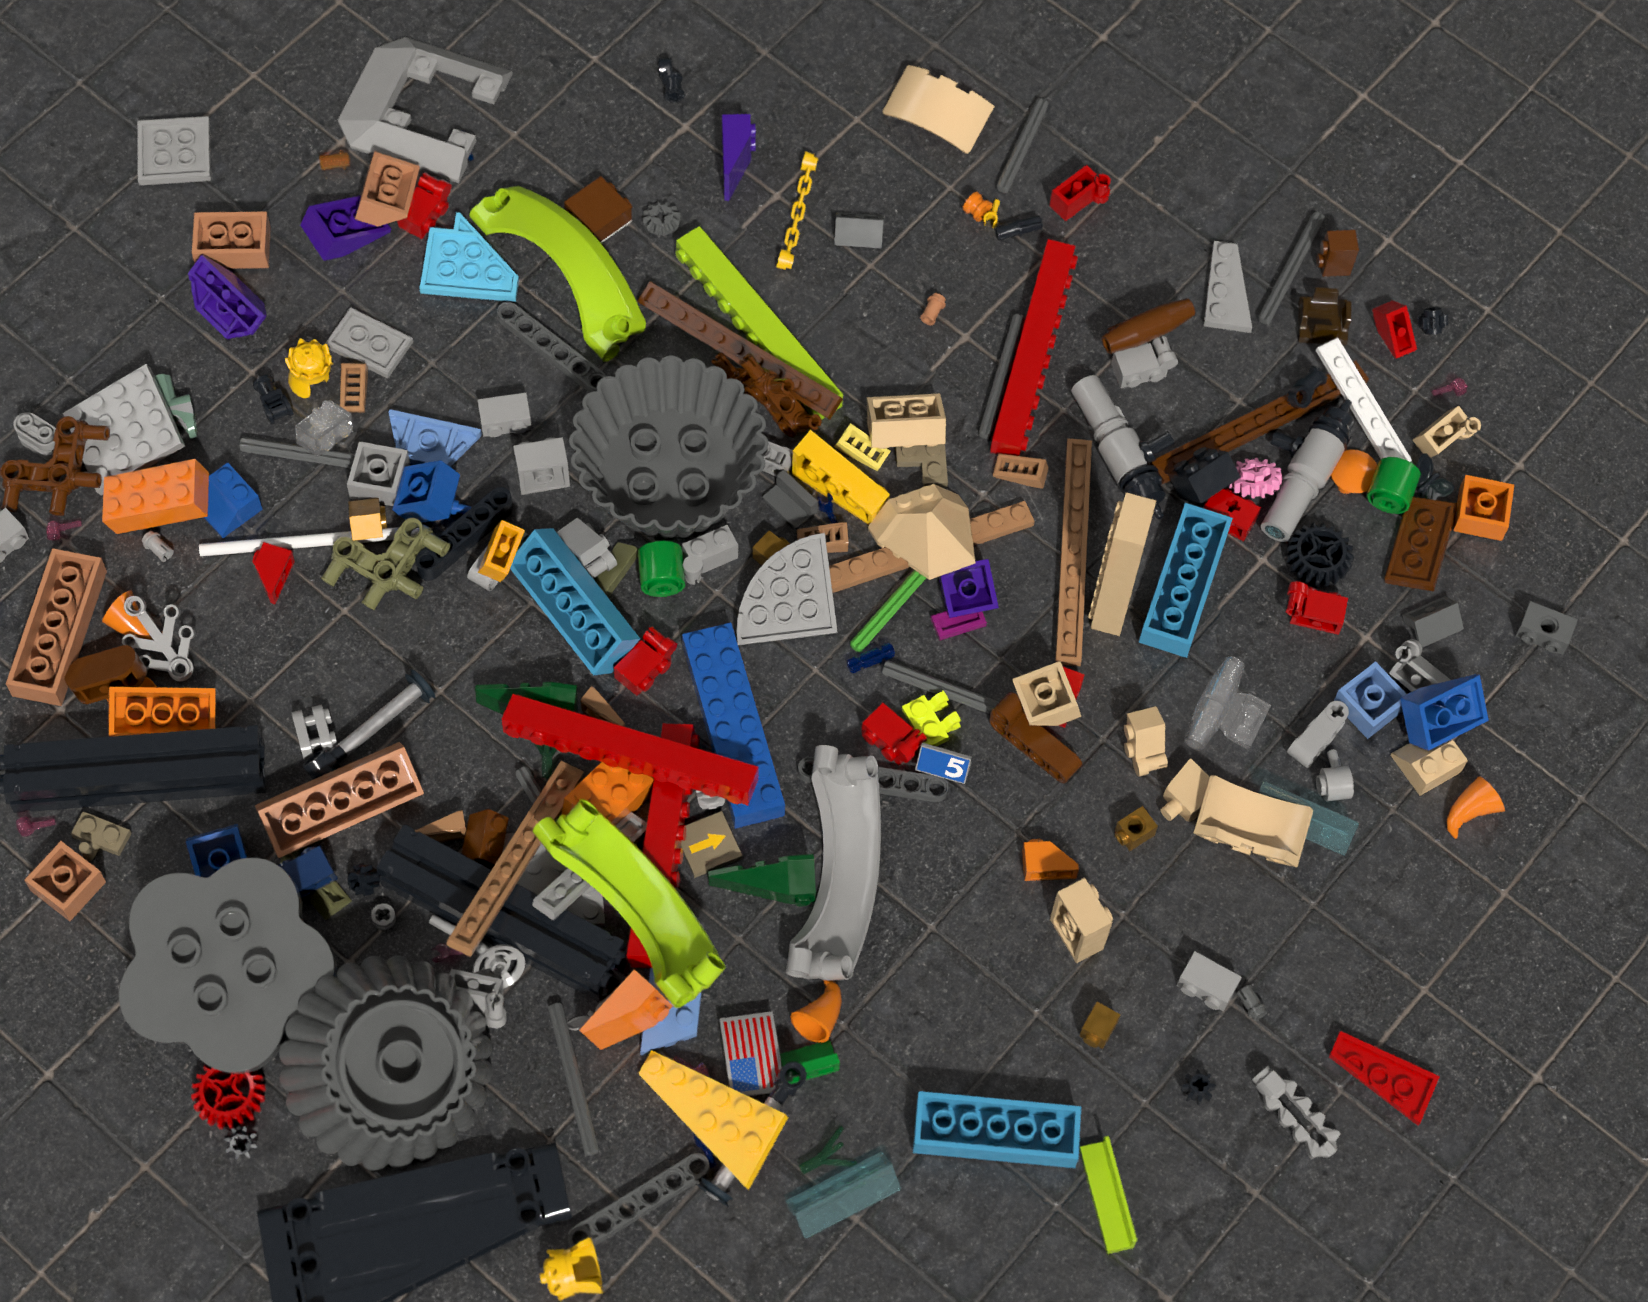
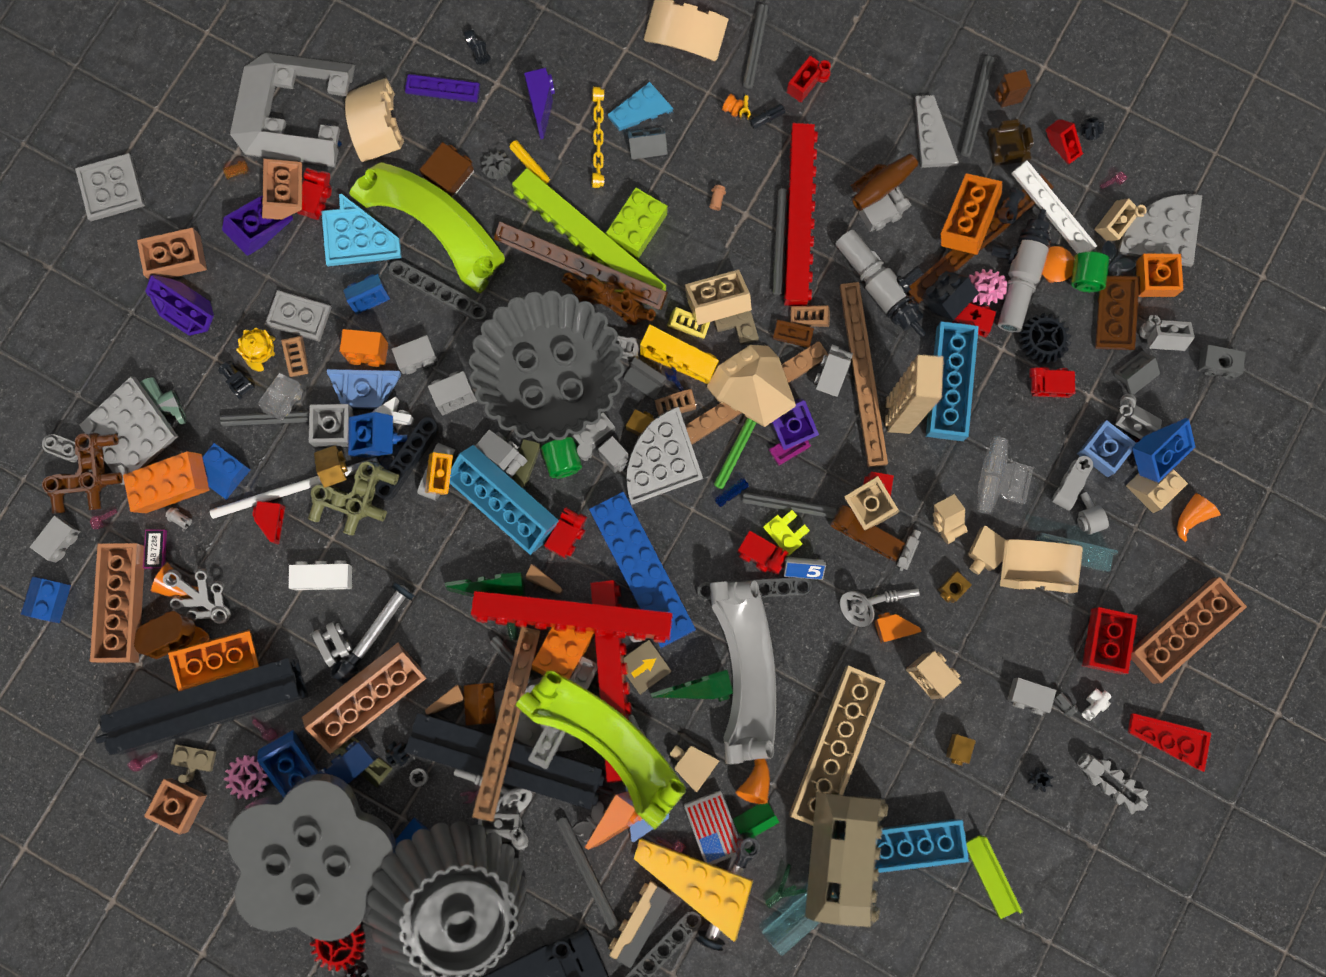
camera: 10 degrees left, 15 degrees up
(117, 575) = (154, 549): none -> tile
(158, 858) = (247, 785): none -> bright pink gear
(204, 825) = (269, 734): none -> clear pink hand
(319, 649) = (320, 576): none -> white brick
(443, 391) = (364, 347): none -> orange brick
(462, 333) = (366, 294): none -> blue slope
(468, 484) = (400, 417): none -> white slope
(517, 137) = (371, 121): none -> tan panel
(615, 118) = (442, 88): none -> dark purple tile
(627, 1153) = (640, 924): none -> piece
(702, 220) = (528, 161): none -> yellow axle
(728, 578) = (614, 455): none -> light grey brick
(745, 975) = (693, 765): none -> tan torso
(824, 316) = (637, 222): none -> lime brick
(857, 187) = (639, 107): none -> dark azure wing
(925, 1108) = (845, 861): none -> dark tan wedge
(936, 990) = (838, 740): none -> tan brick
(993, 485) = (793, 333): none -> reddish brown plate
(1009, 824) = (860, 604): none -> light grey dish
(1034, 537) = (834, 371): none -> light grey hinge
(1080, 780) = (909, 550): none -> light grey piece
(1252, 386) = (971, 214): none -> orange brick
(1294, 1007) = (1098, 702): none -> white plate
(1326, 933) = (1109, 640): none -> red brick
(1430, 941) = (1186, 630): none -> nougat brick
(1482, 581) = (1167, 334): none -> light grey hinge
(1506, 453) = (1165, 229): none -> light grey plate

